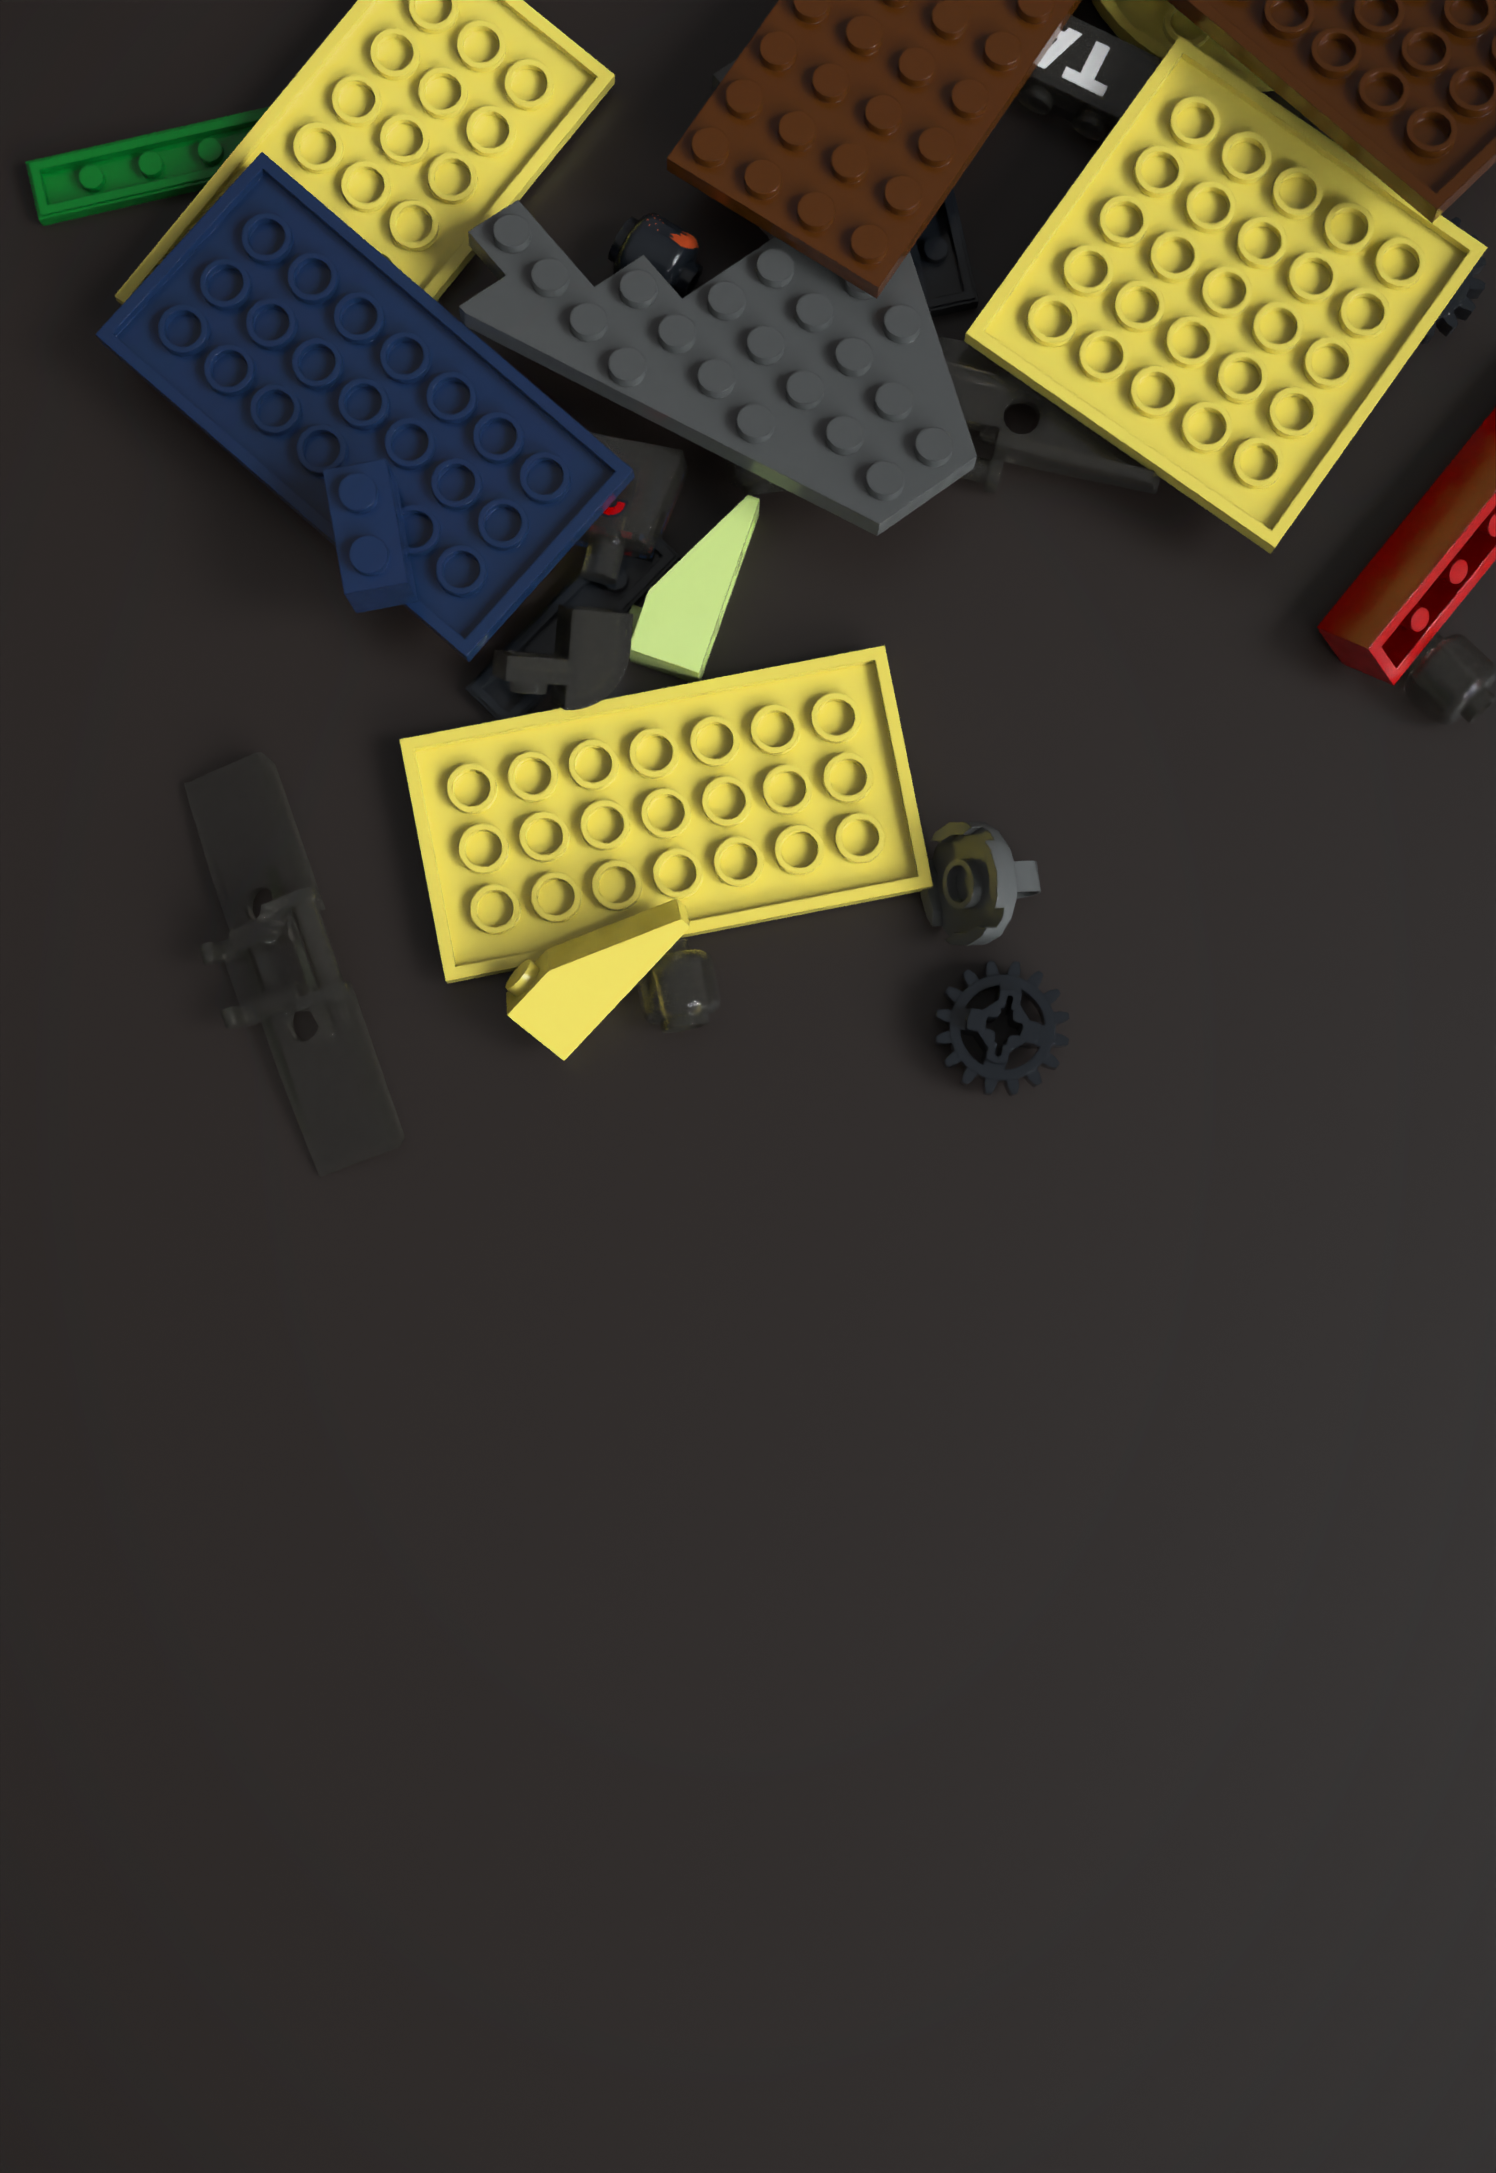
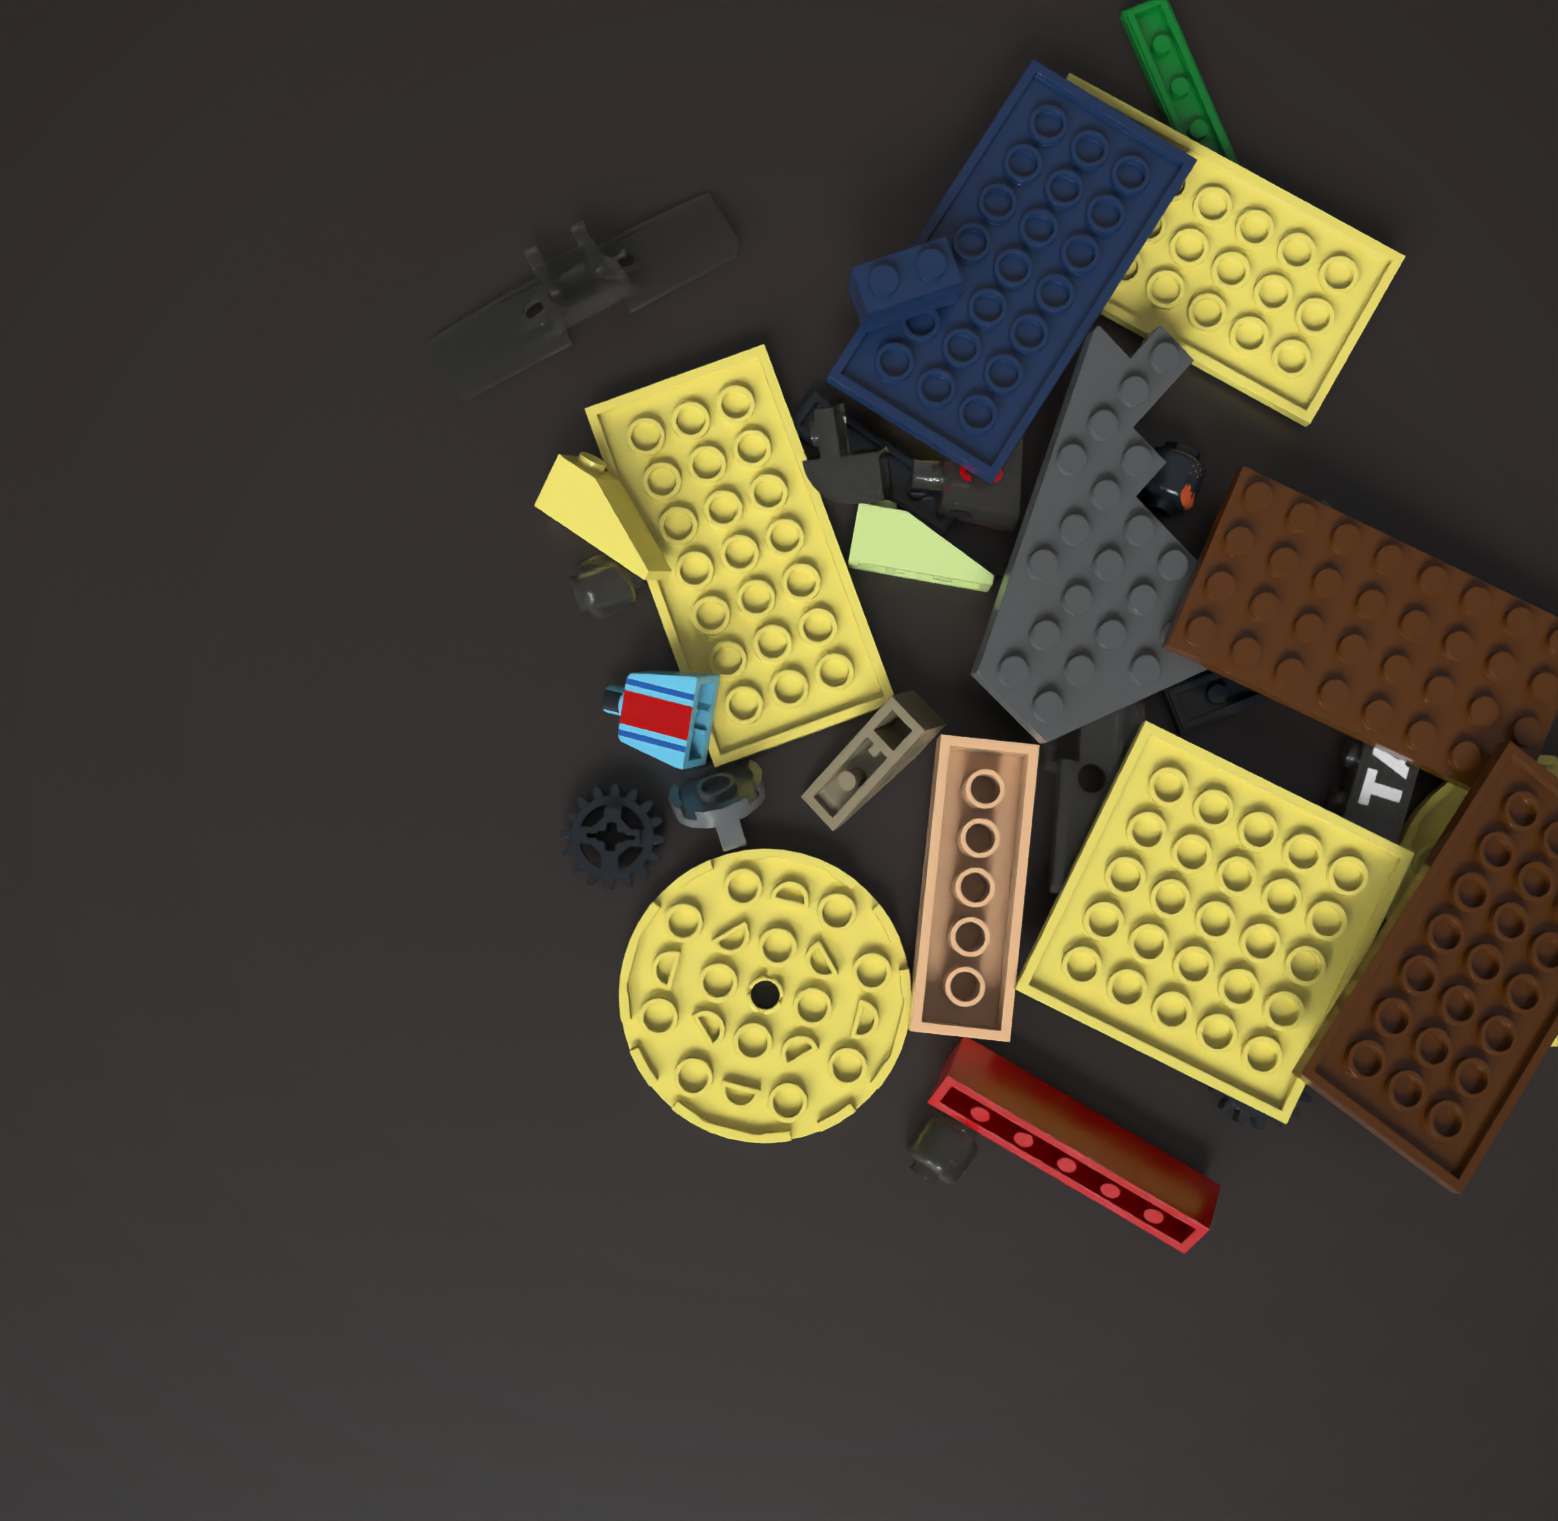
camera: 85 degrees right, 0 degrees up
(857, 935) = (666, 714): none -> torso
(953, 687) = (873, 757): none -> dark tan slope
(1137, 586) = (973, 887): none -> light nougat brick
(1318, 851) = (776, 1067): none -> light yellow plate

